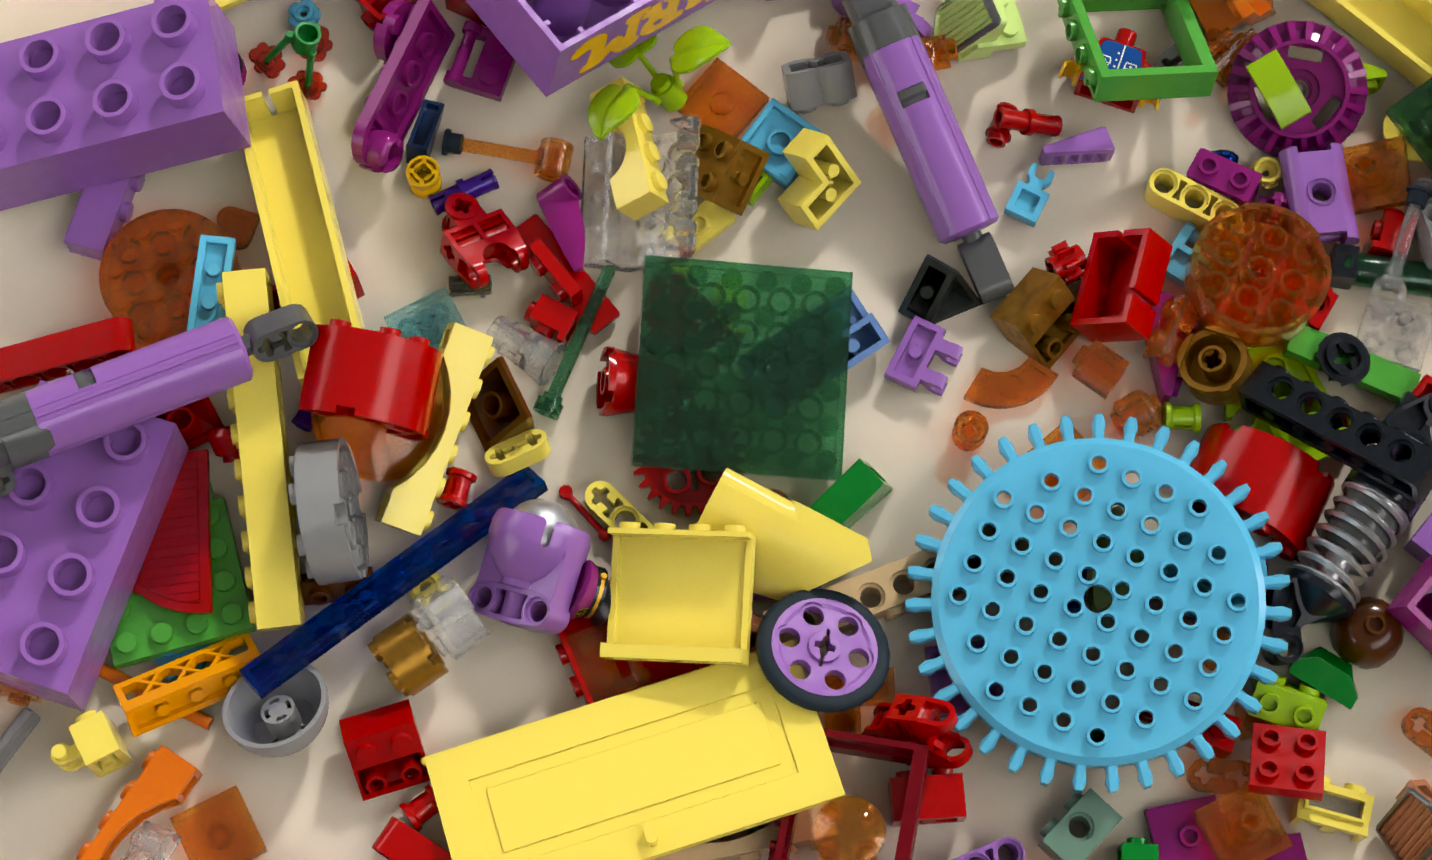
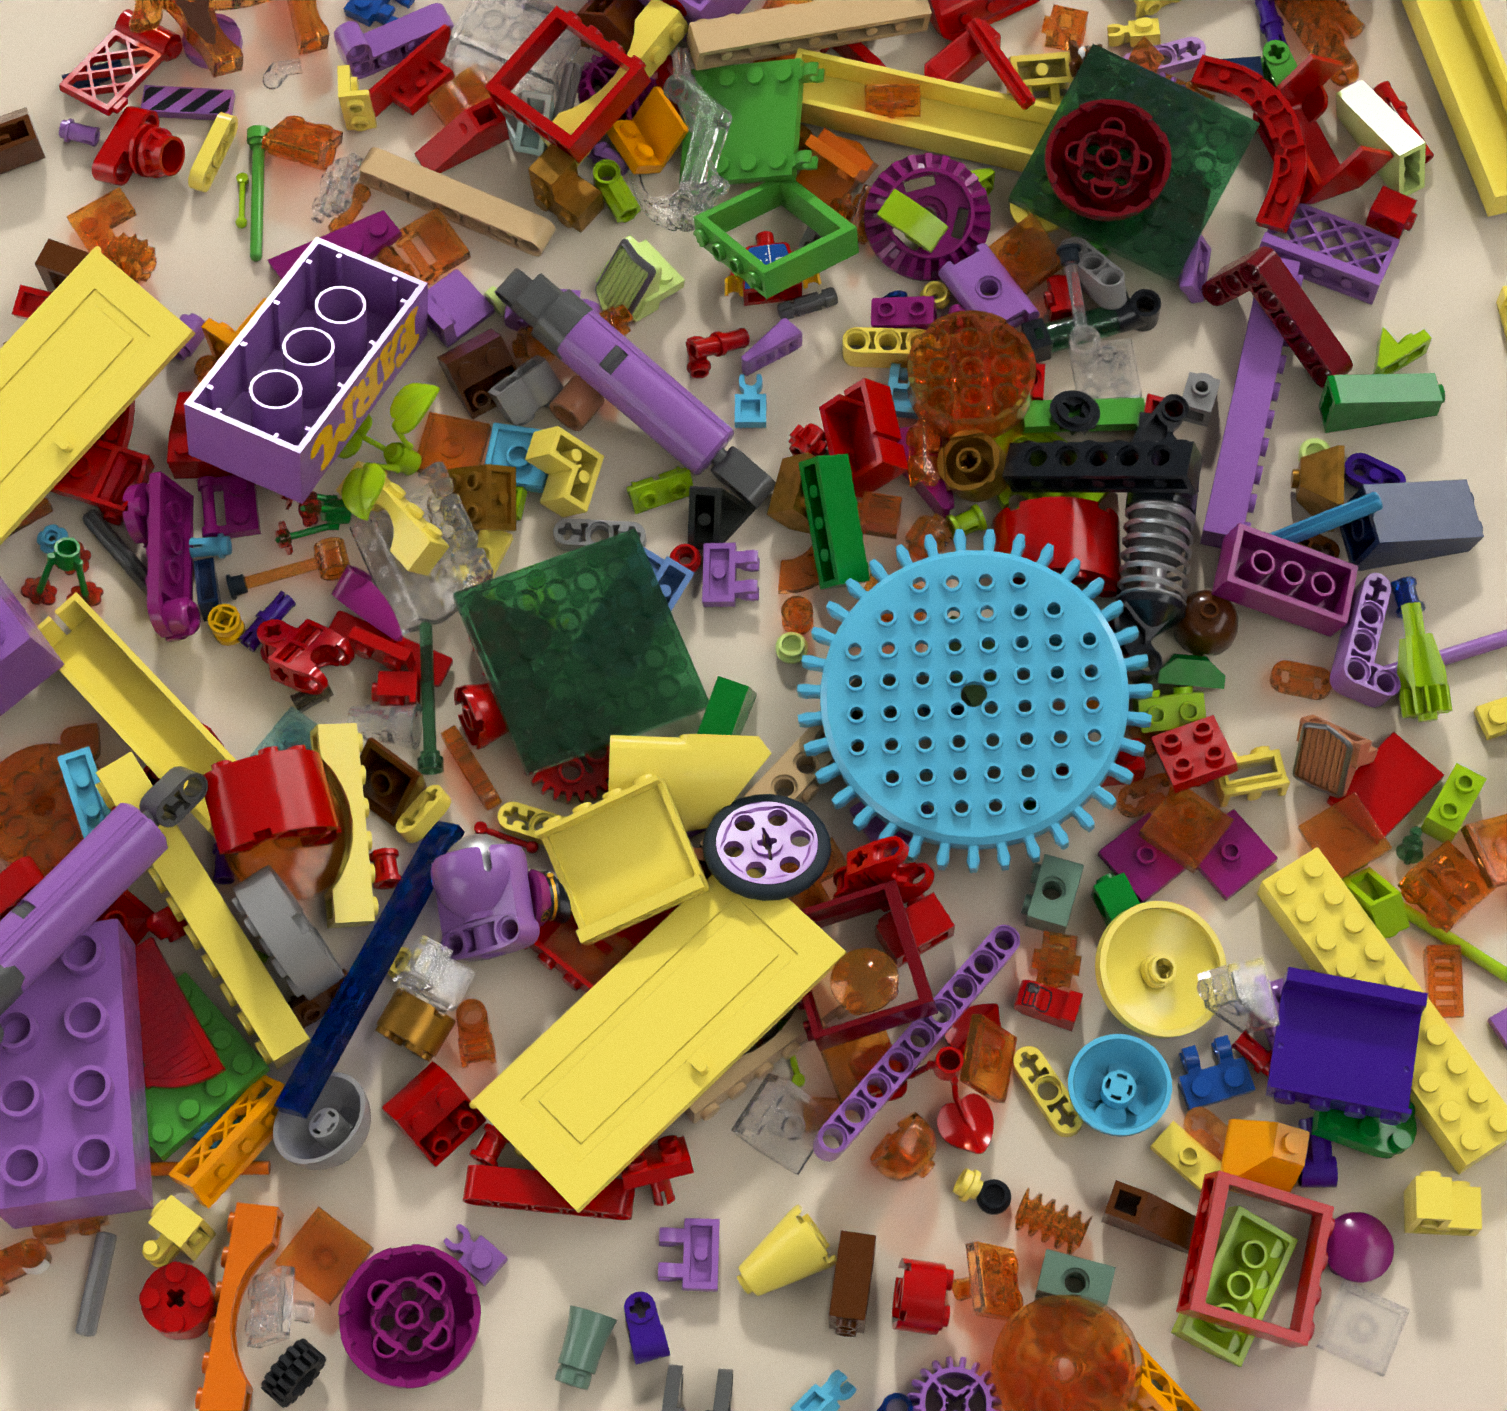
camera: 20 degrees left, 5 degrees down
(47, 801) = (159, 1299): none -> red brick
(358, 49) = (116, 548): none -> dark grey axle
(448, 93) = (211, 546): none -> medium azure pin
(460, 694) = (475, 1040): none -> clear orange piece
(574, 112) = (331, 510): none -> plant
(584, 429) = (470, 768): none -> clear orange beam
(783, 36) = (476, 368): none -> reddish brown slope
(793, 254) = (591, 526): none -> light grey beam
(860, 117) = (576, 404): none -> nougat piece
(887, 240) = (654, 493): none -> lime hinge
(895, 313) = (688, 551): none -> red plate
(949, 459) = (791, 647): none -> yellowish green plate
(1050, 356) = (834, 520): none -> green brick
(1136, 121) = (807, 303): none -> dark grey axle

